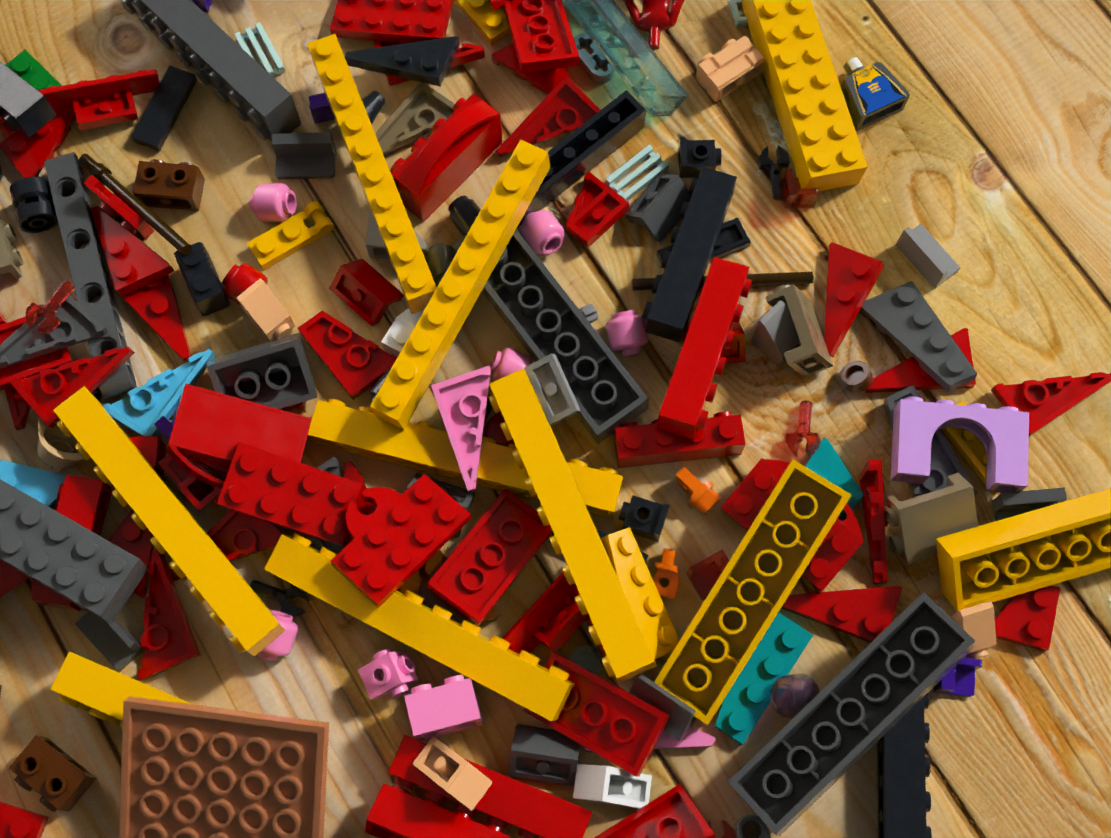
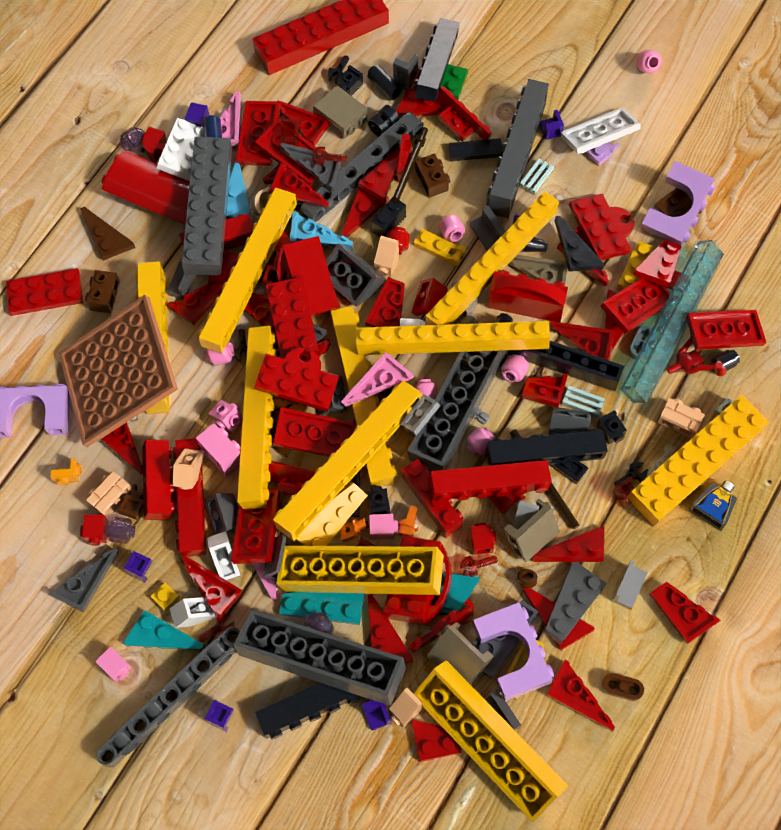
camera: 65 degrees right, 5 degrees down
(685, 530) = (382, 526): none -> bright pink brick
(771, 404) = (482, 539): none -> red brick
(999, 210) = (685, 615): none -> red wing
(1059, 337) = (622, 687): none -> reddish brown plate

